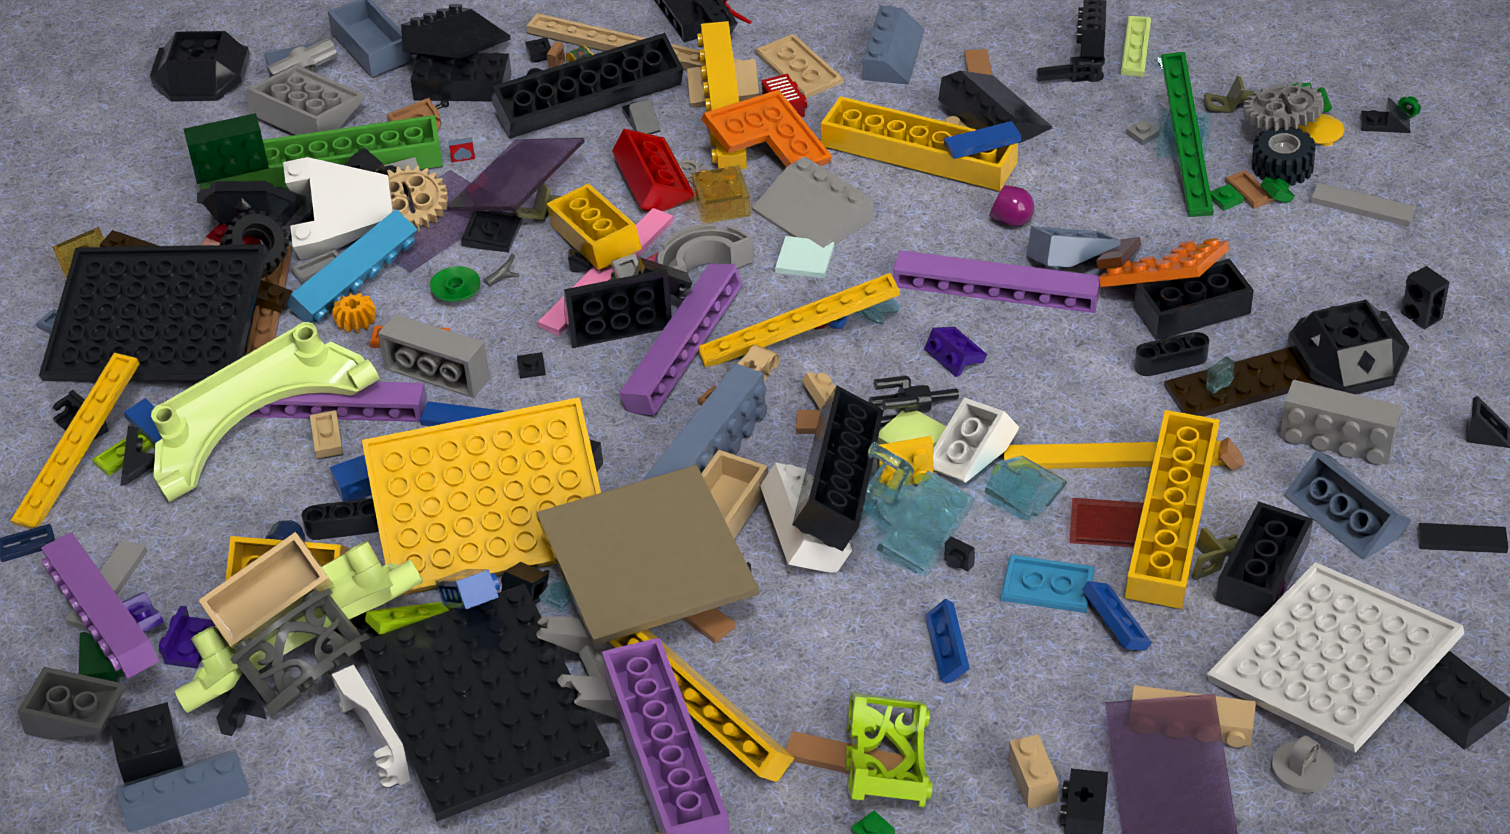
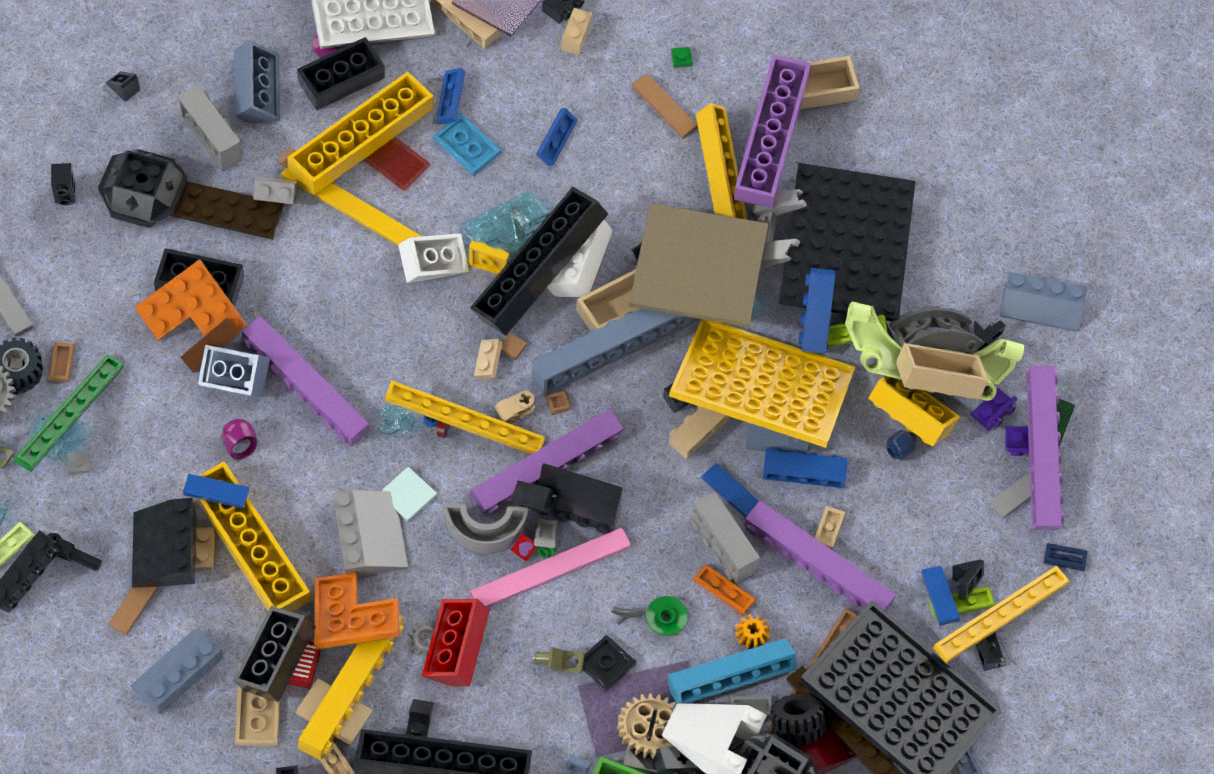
camera: 155 degrees left, 20 degrees up
(68, 704) = (1087, 387): dark grey slope -> none
(145, 742) = (1052, 340): black brick -> none
(206, 411) = (936, 557): yellowish green panel -> none
(340, 519) = (865, 441): black beam -> none
(357, 696) = (919, 271): white piece -> none
(515, 174) = (558, 698): clear purple piece -> none
(531, 365) = (658, 509): black plate -> none
(532, 577) = (771, 320): black brick -> none
(578, 262) = (565, 585): black slope -> none
(594, 226) = (540, 597): yellow brick -> none
(721, 194) = (425, 583): clear yellow brick -> none
(808, 69) = (274, 654): none -> black brick
(898, 781) = (648, 100): lime fence -> none
(908, 397) = (443, 317): black plant -> none
(910, 426) = (456, 295): yellowish green tile -> none
(953, 349) = (378, 343): dark purple bracket -> none
(959, 554) = (505, 187): black plate -> none
(1023, 486) = (427, 208): clear light blue slope -> none
(1171, 354) = (244, 244): black beam -> none
(1212, 550) = (352, 103): olive bracket -> none
(1214, 403) = (275, 189): none -> light grey brick
(1220, 375) = (245, 203): clear light blue plate -> none
(1226, 197) = (83, 364): green plate -> none
(1278, 189) = (48, 343): green plate -> none
(1462, 538) = (212, 31): black tile -> none

